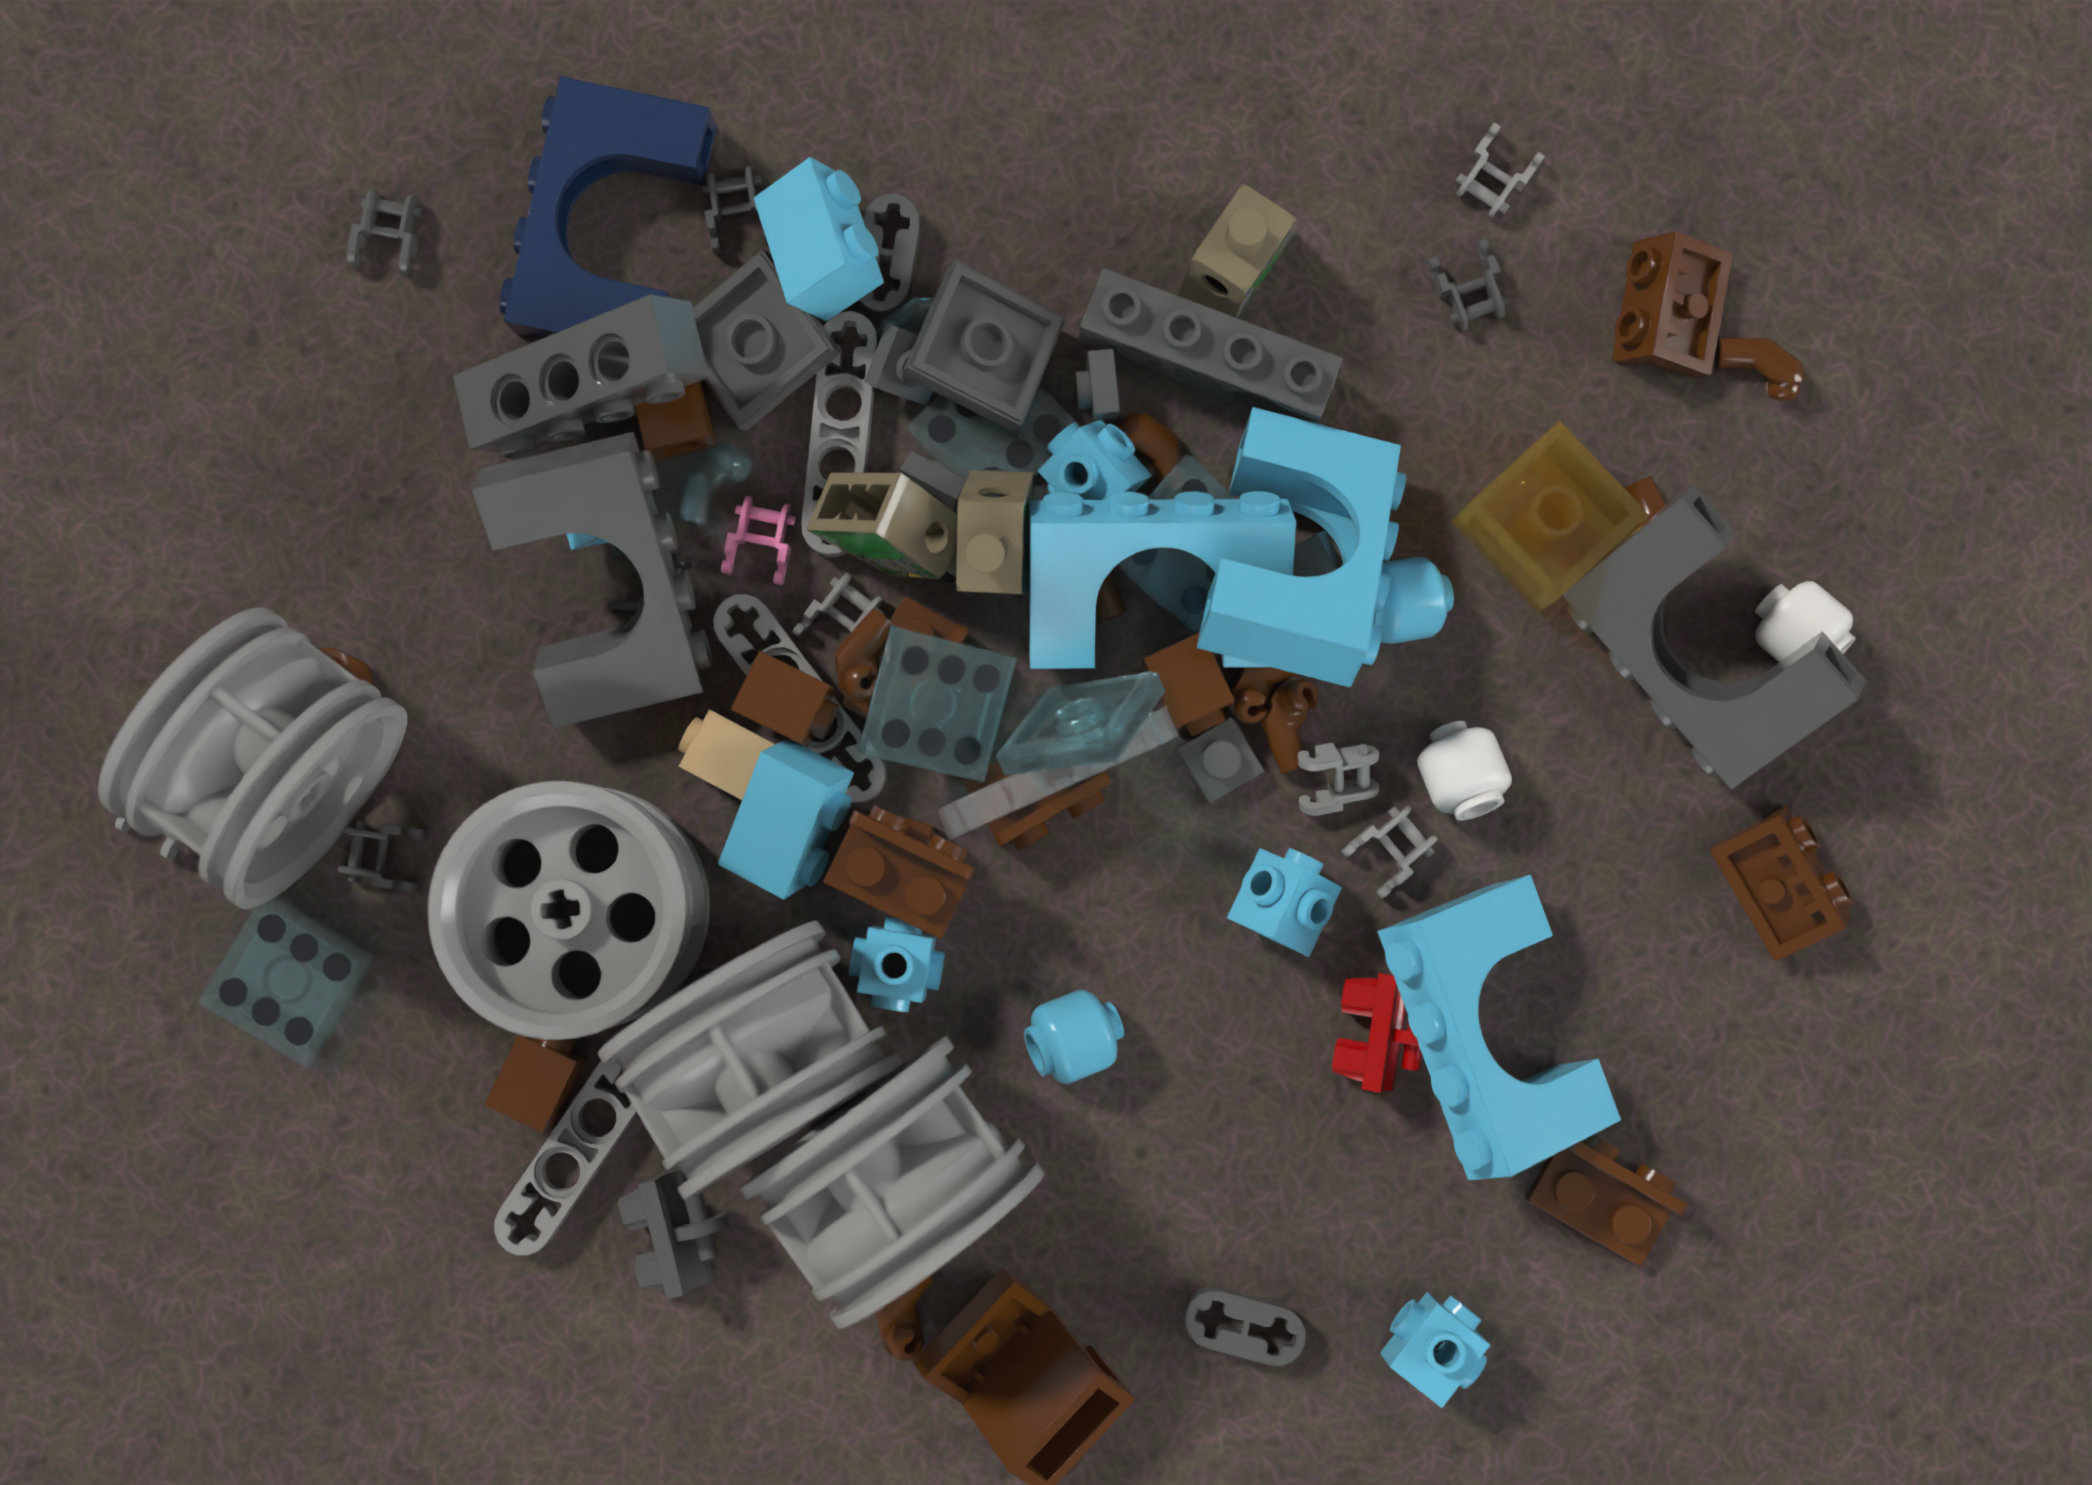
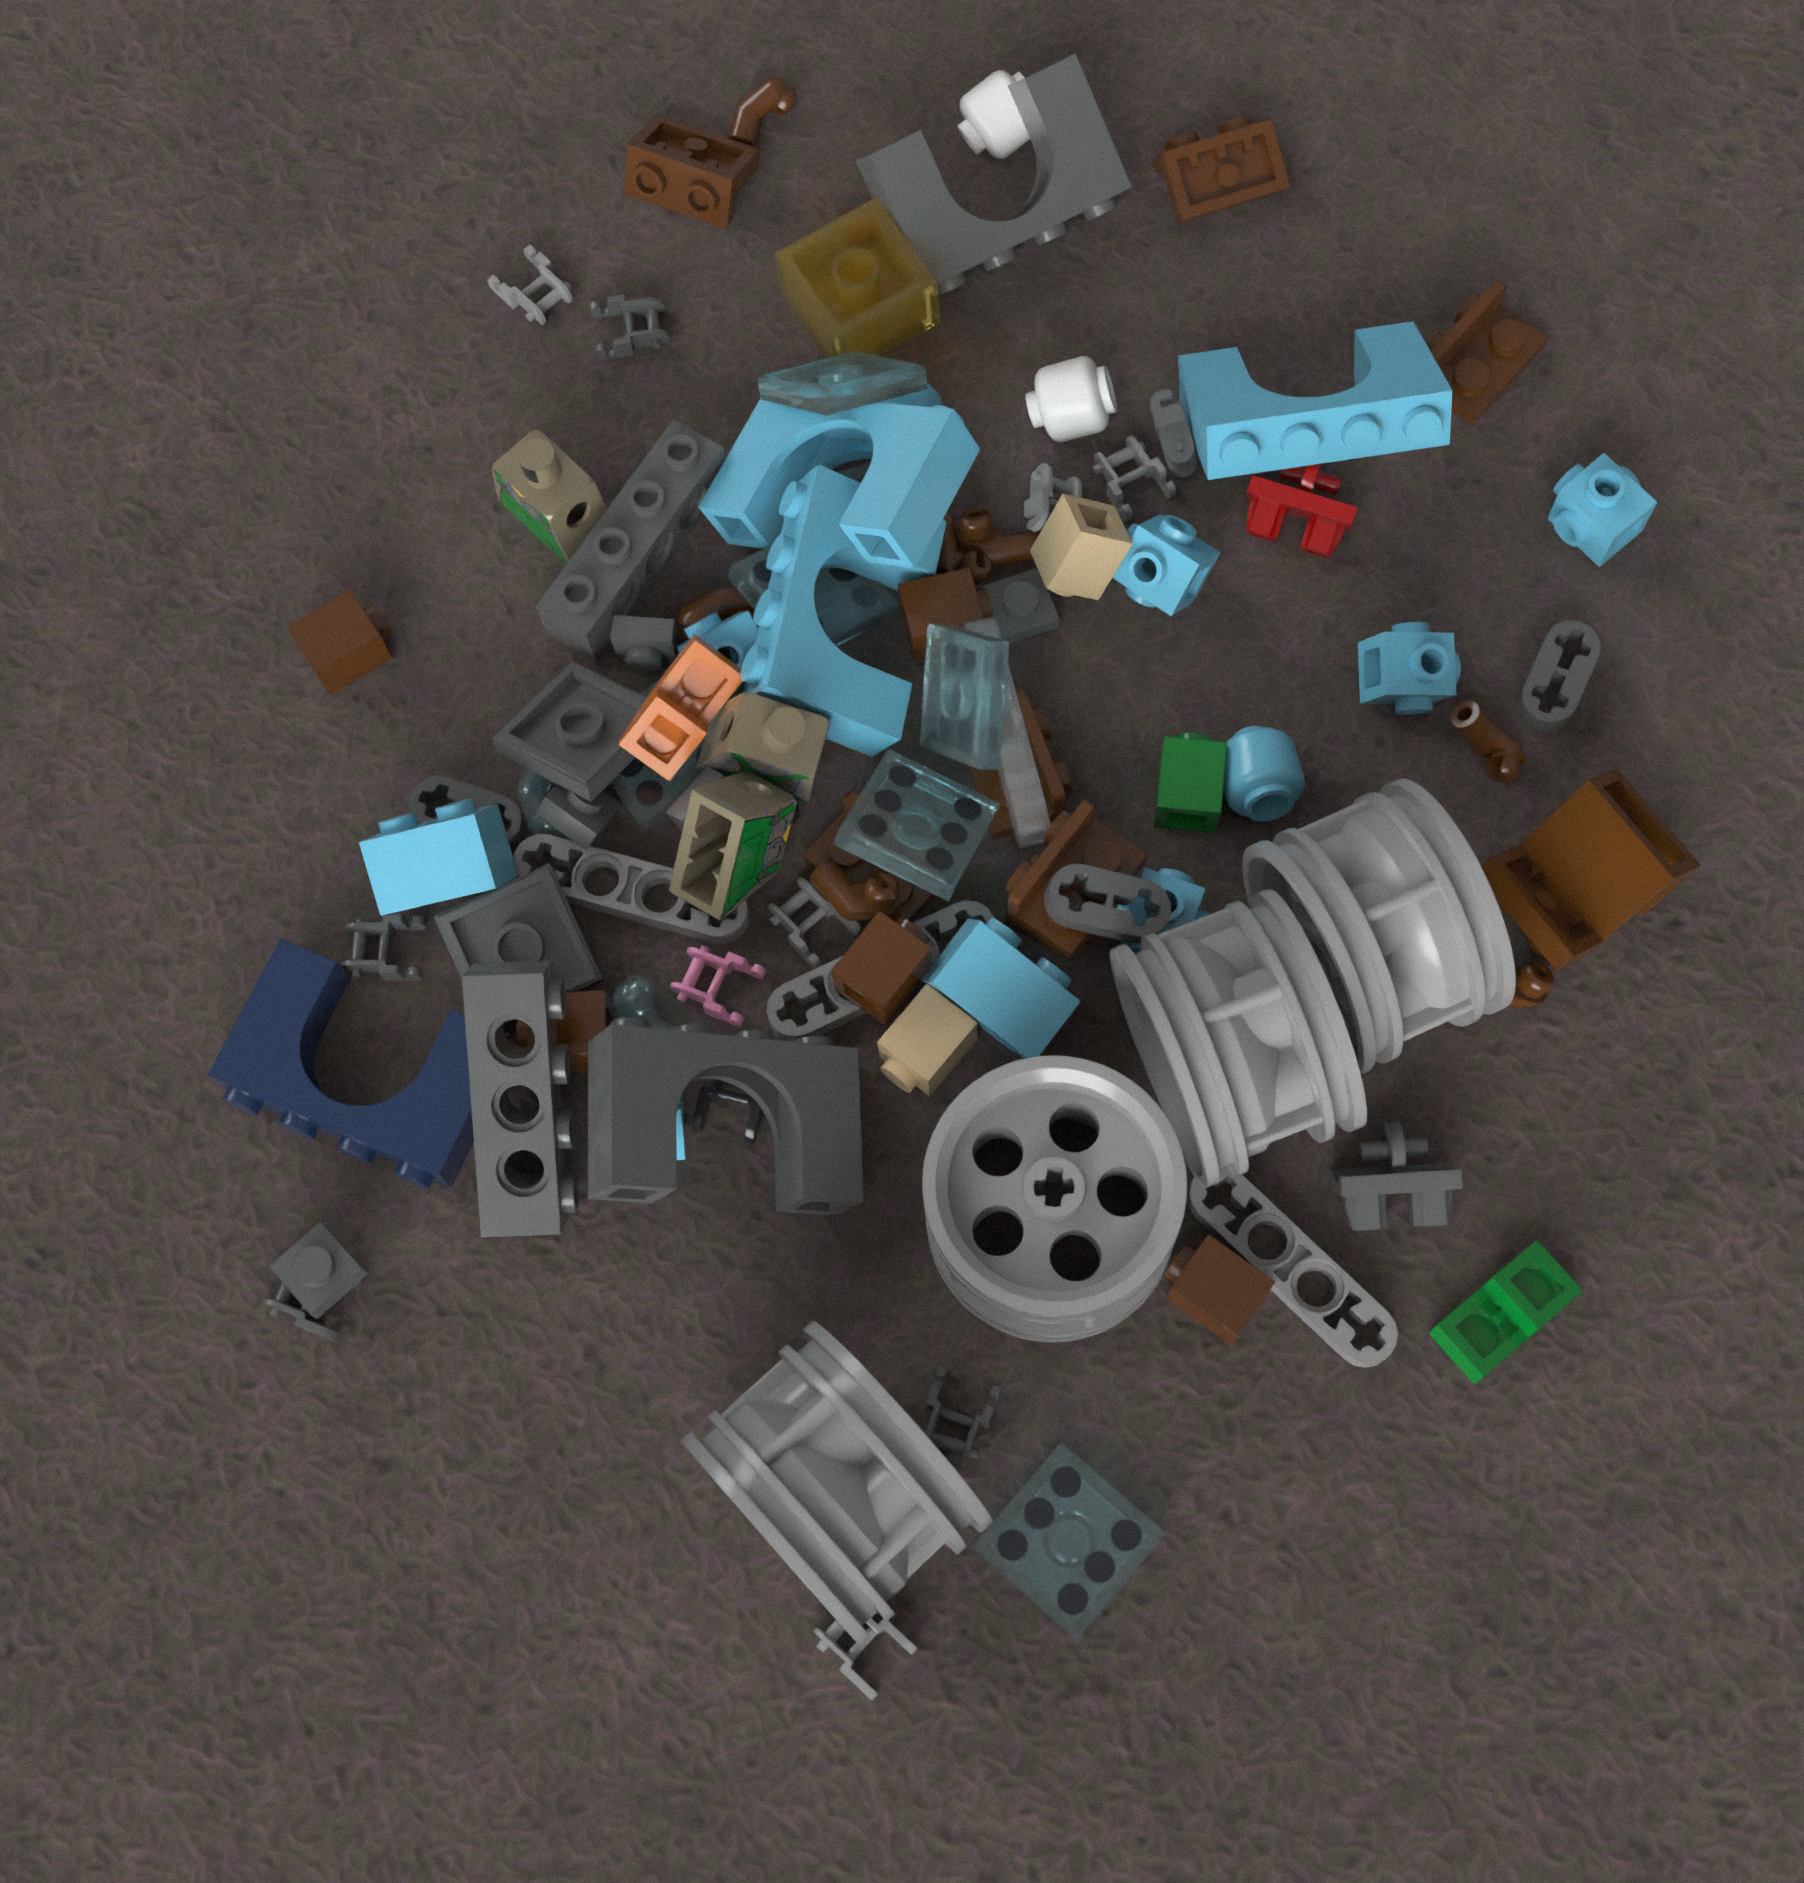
camera: 75 degrees left, 15 degrees down
(400, 232) = (318, 1270): none -> dark grey plate
(573, 1352) = (1505, 1312): none -> green slope
(853, 909) = (1109, 888): none -> dark grey beam
(1014, 440) = (681, 707): none -> orange slope
(1043, 81) = (342, 640): none -> reddish brown brick
(1050, 968) = (1190, 783): none -> green brick
(1161, 1257) = (1489, 741): none -> reddish brown arm
(1211, 1171) = (1408, 668): none -> medium azure brick
(1282, 811) = (1080, 547): none -> tan brick
(1409, 526) = (842, 383): none -> clear light blue tile
(1442, 884) = (1173, 435): none -> dark grey piece

